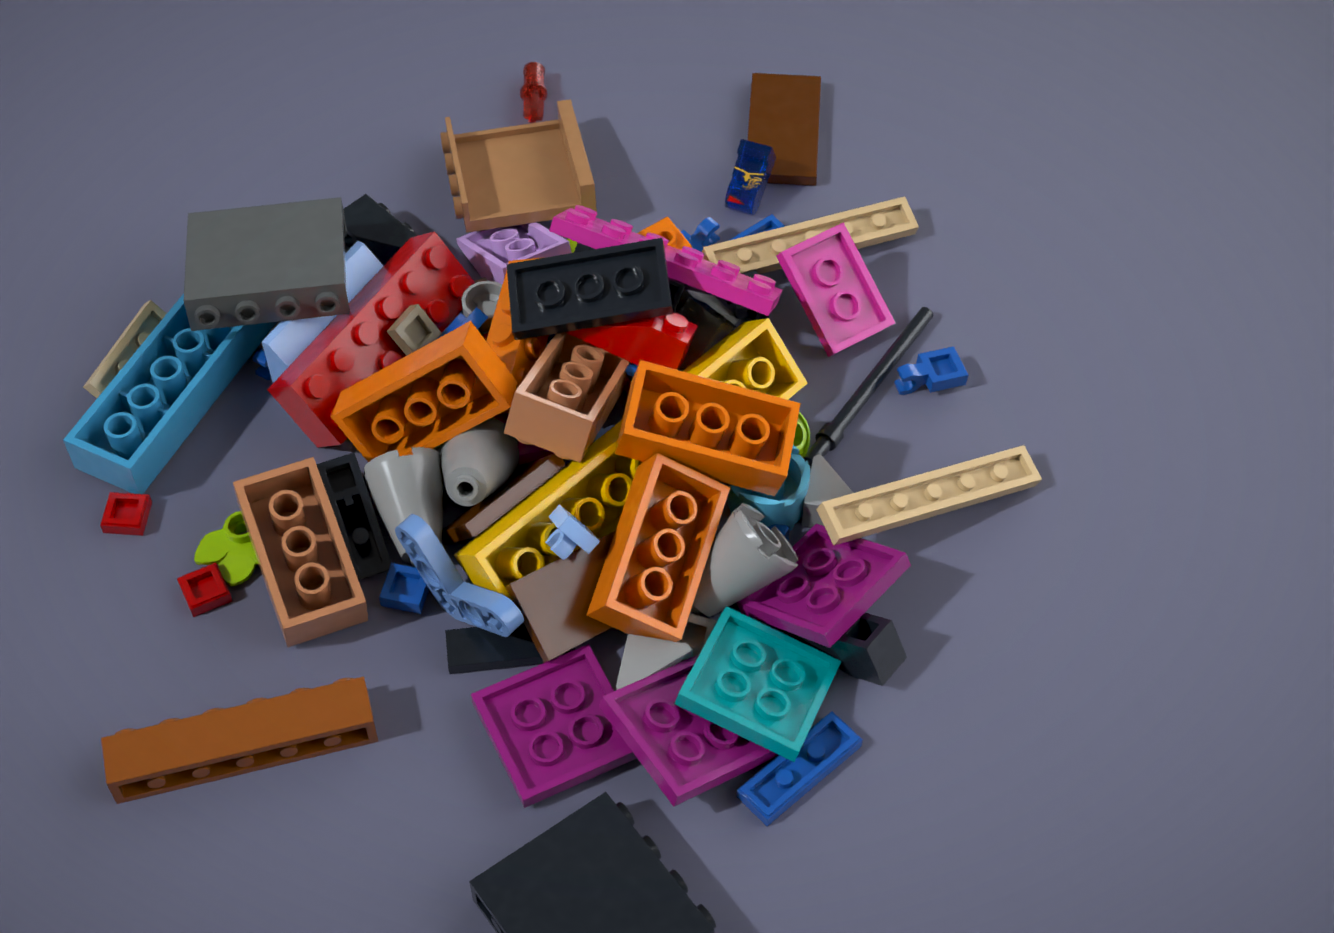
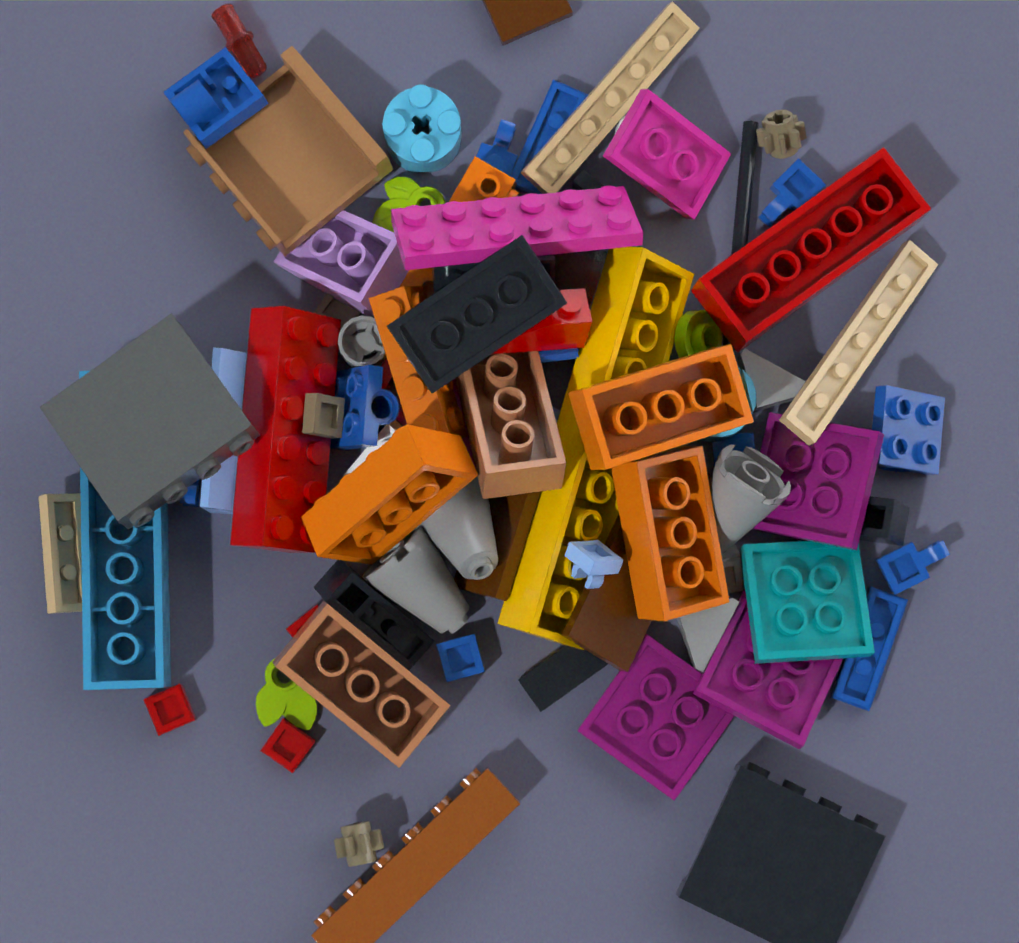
camera: 30 degrees left, 30 degrees up
(203, 689) = (358, 843): none -> dark tan gear
(376, 228) = (206, 303): black slope -> none
(458, 598) = (518, 647): medium blue beam -> none
(486, 113) = (216, 97): none -> blue plate
(638, 191) = (416, 108): none -> medium azure brick
(749, 176) = (514, 51): clear blue leg -> none
(876, 708) = (907, 566): none -> blue plate
(924, 405) = (810, 249): none -> red brick
(938, 592) = (910, 429): none -> plate
(948, 323) = (781, 134): none -> dark tan gear

